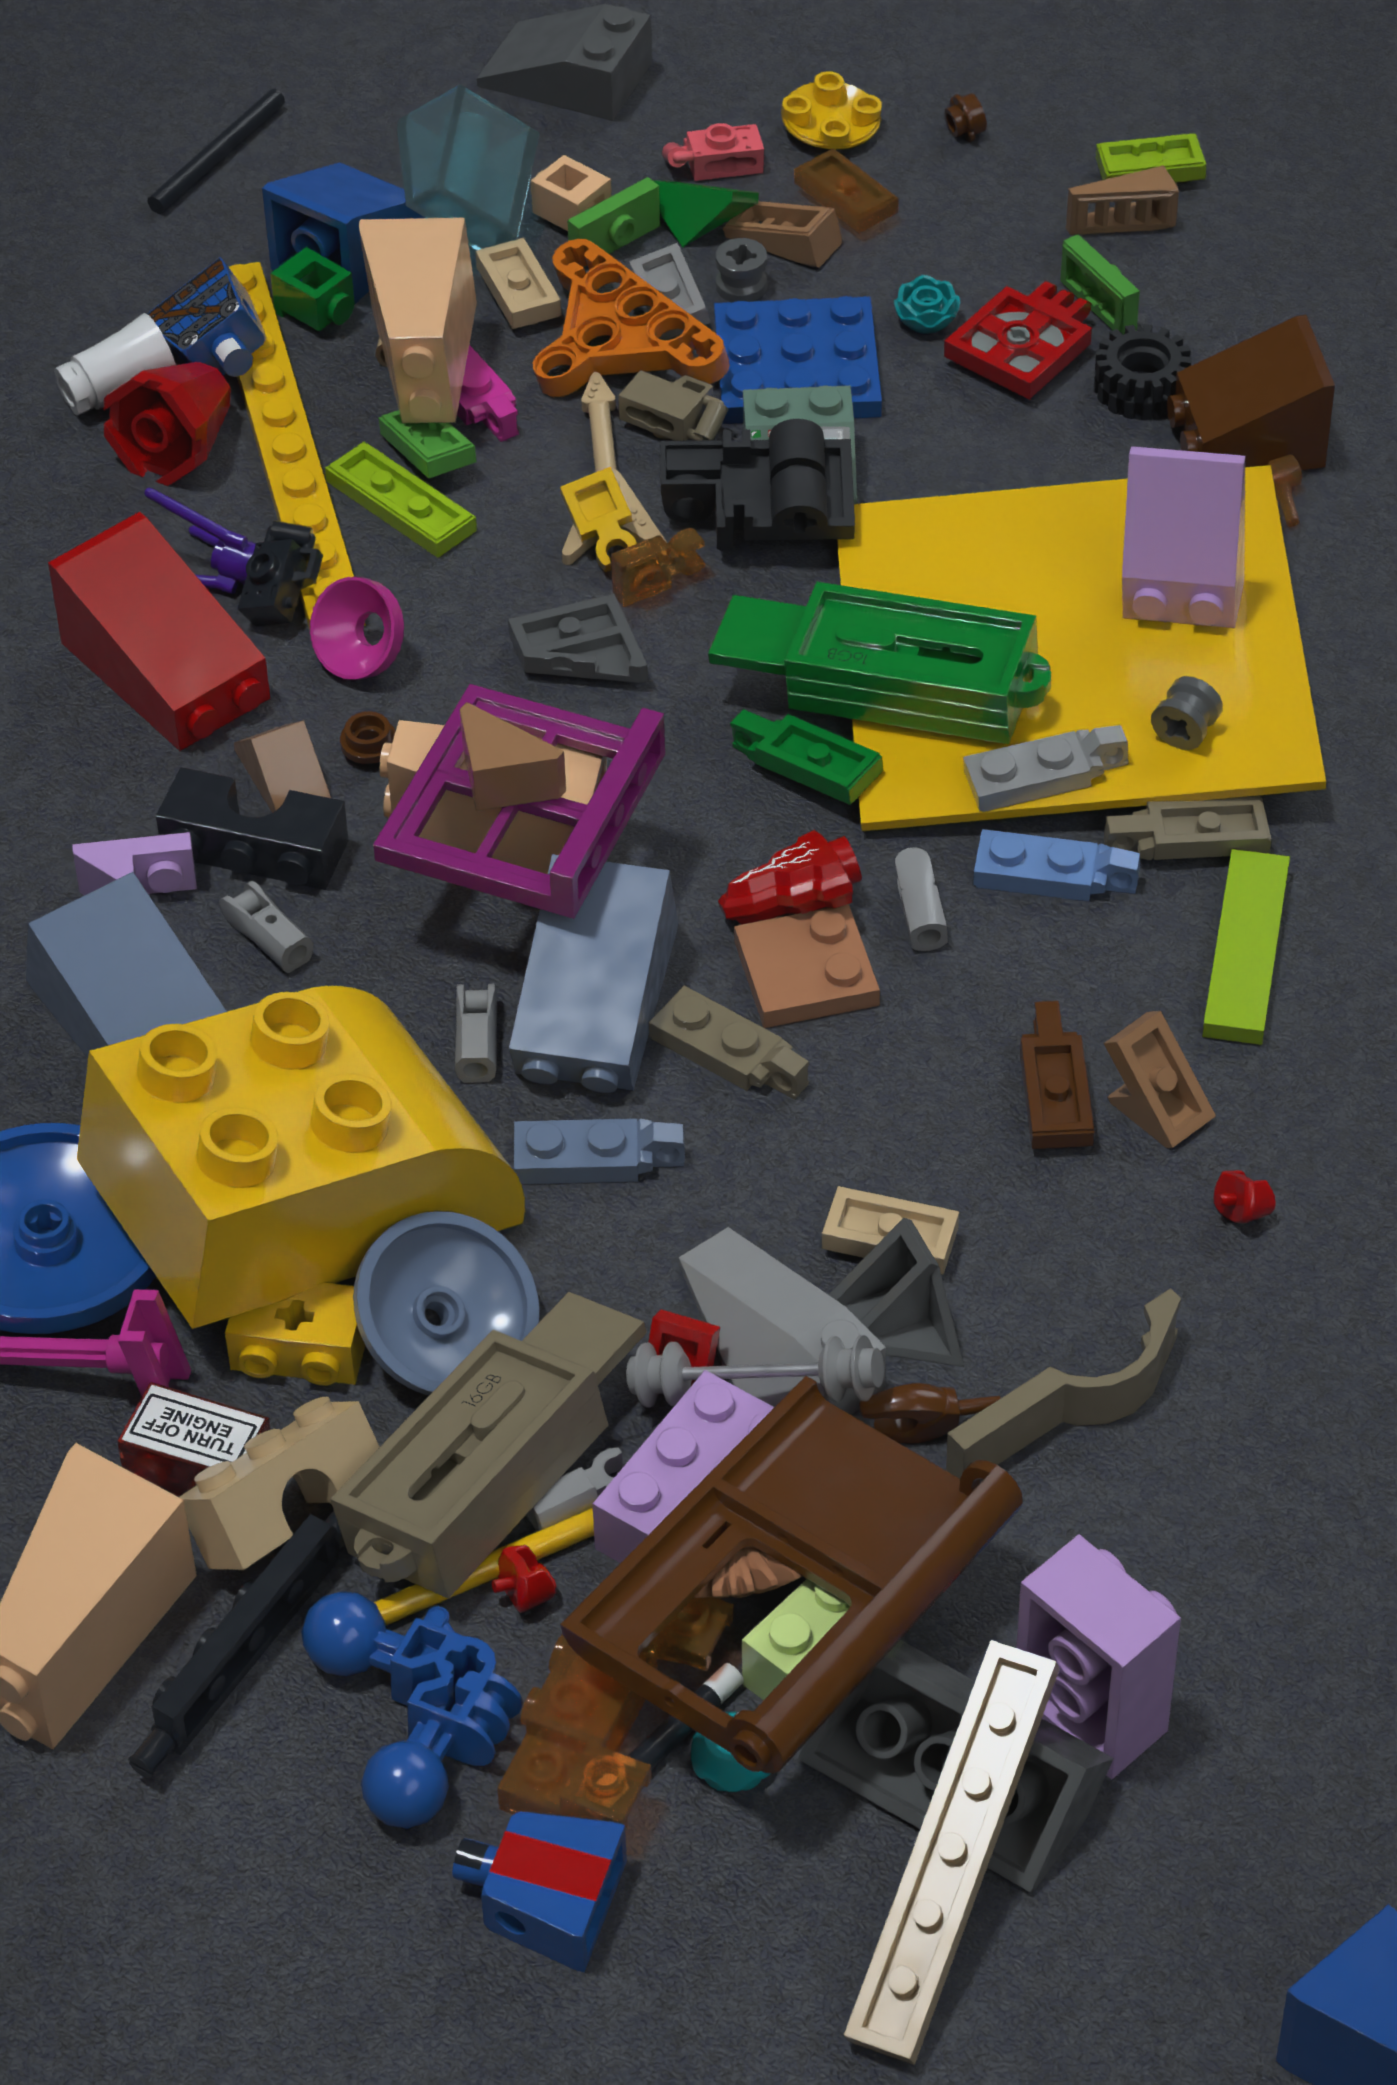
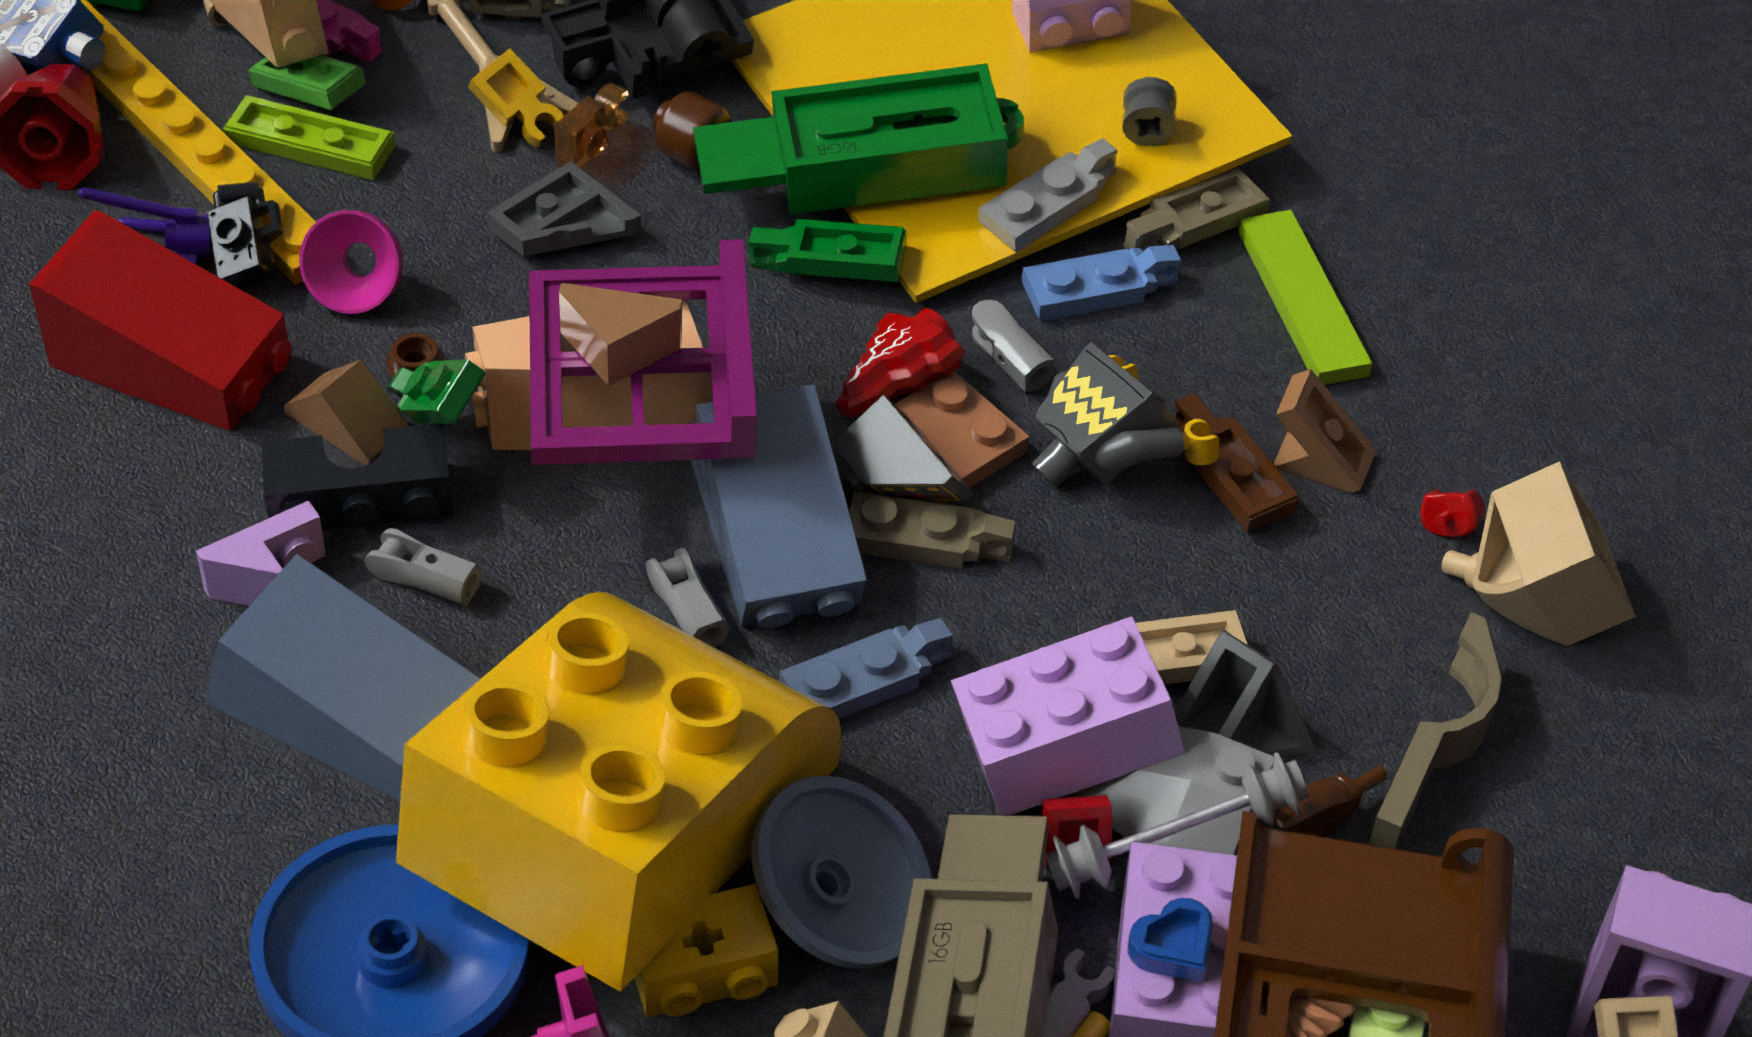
camera: 30 degrees left, 0 degrees up
(348, 768) = (436, 390): none -> green hinge
(674, 1460) = (1174, 941): none -> blue tile
(723, 1245) = (1068, 716): none -> lavender brick
(734, 965) = (895, 458): none -> slope
(744, 578) = (676, 121): none -> reddish brown head
(954, 997) = (1112, 422): none -> dark grey torso
(1289, 1267) = (1545, 560): none -> tan piece

